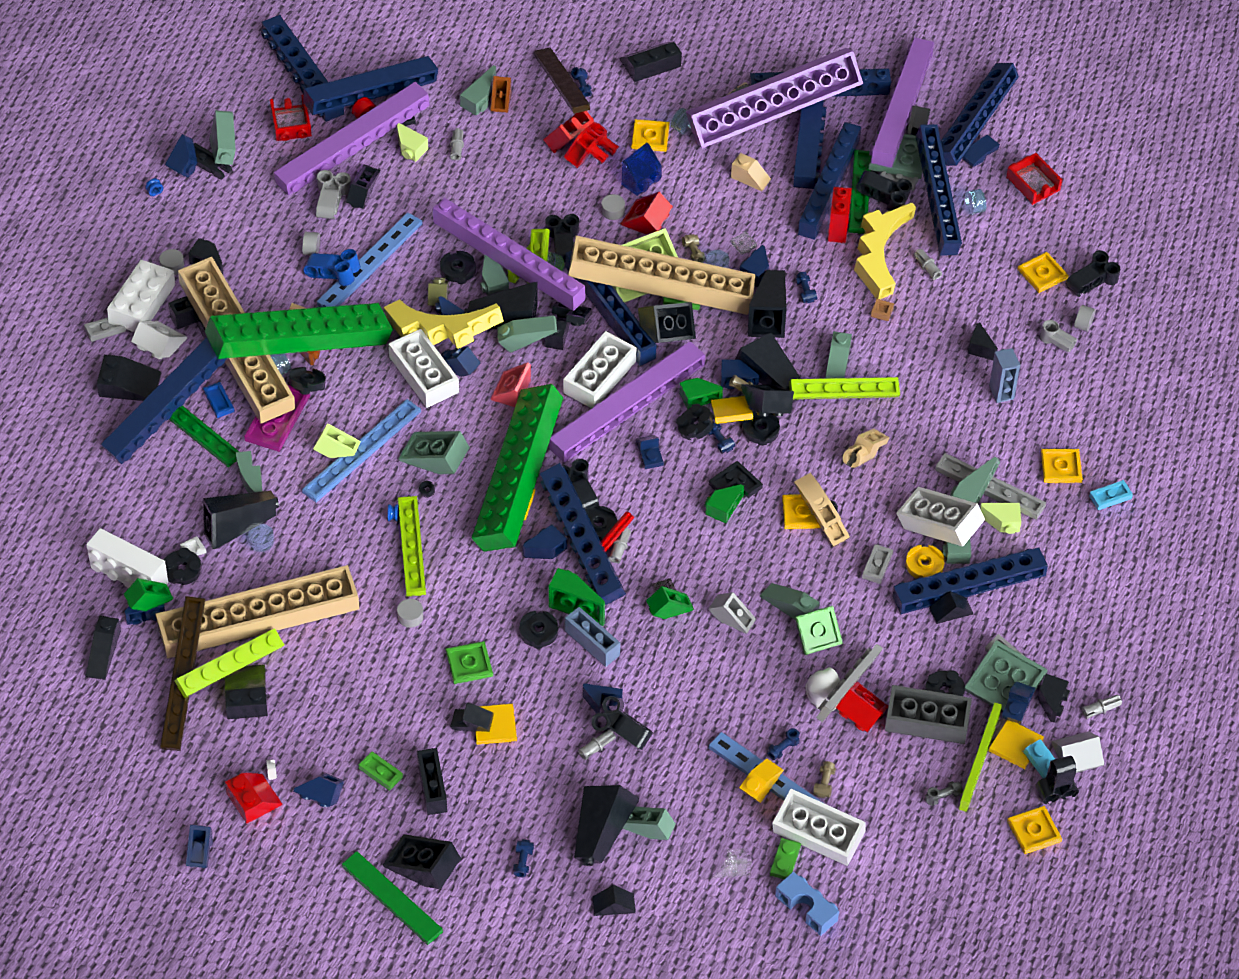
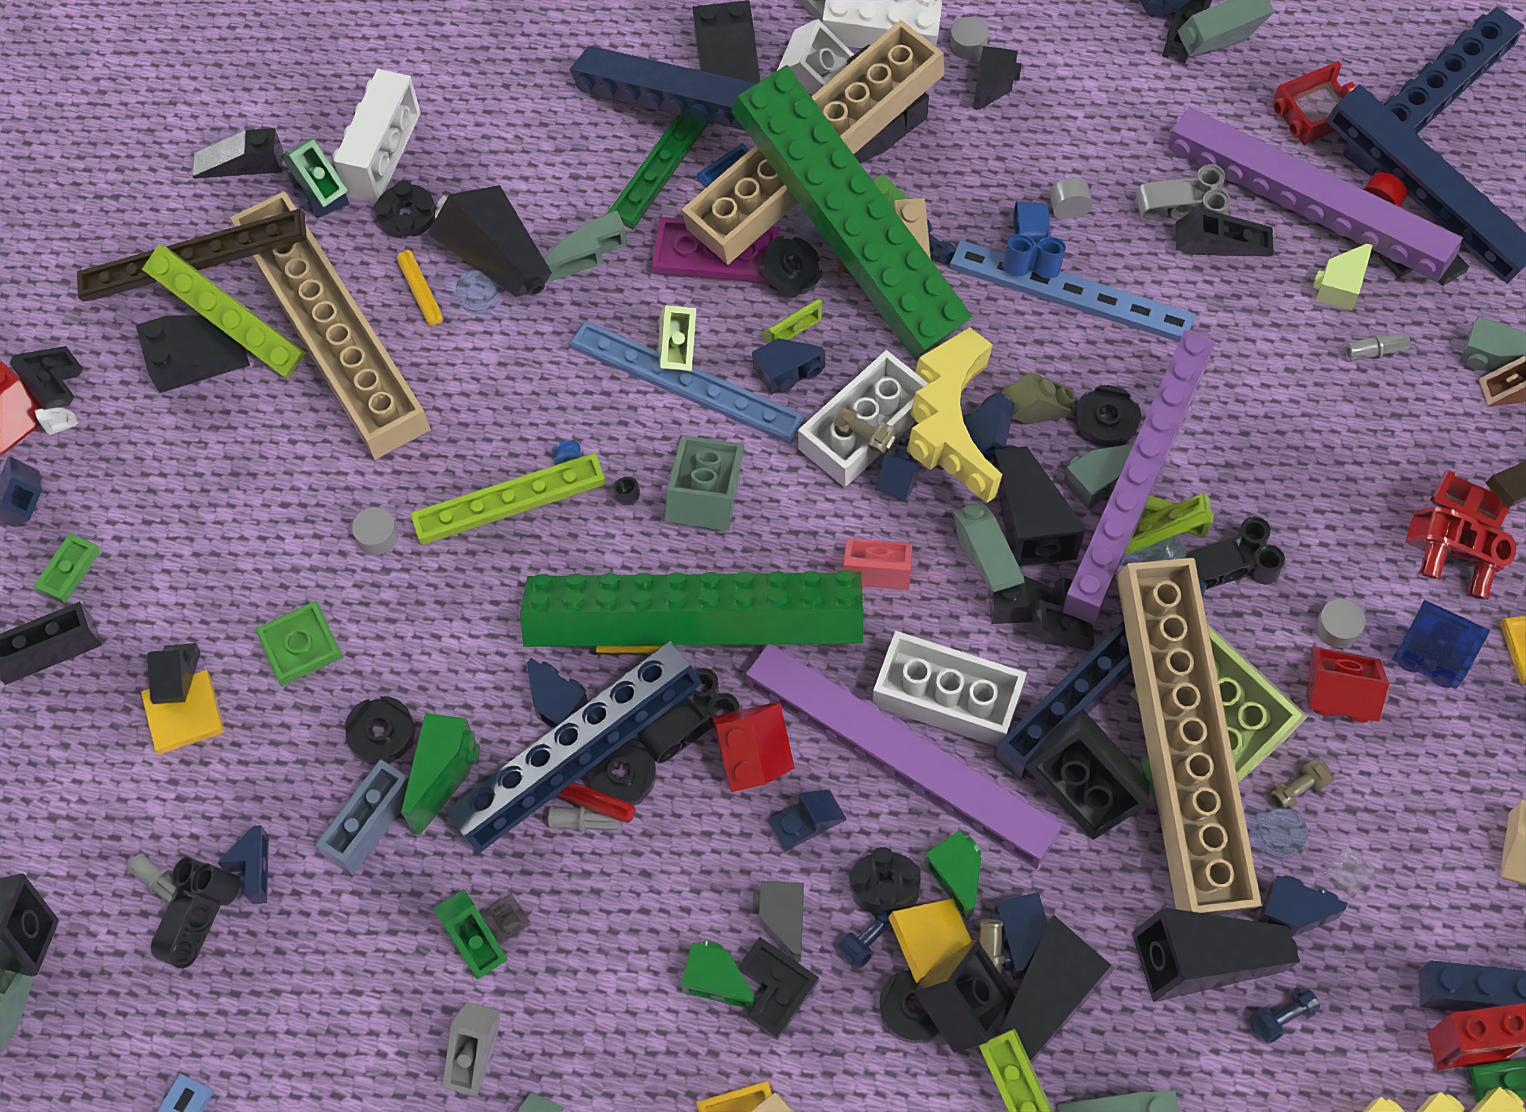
camera: 80 degrees right, 10 degrees up
(238, 764) = (44, 374): none -> black plate
(244, 568) = (419, 288): none -> yellow axle
(341, 390) = (795, 322): none -> lime slope
(370, 398) = (787, 362): none -> dark blue slope
(447, 355) = (880, 437): none -> dark tan bar
(606, 461) = (753, 746): none -> red slope
(700, 468) = (781, 914): none -> dark grey slope

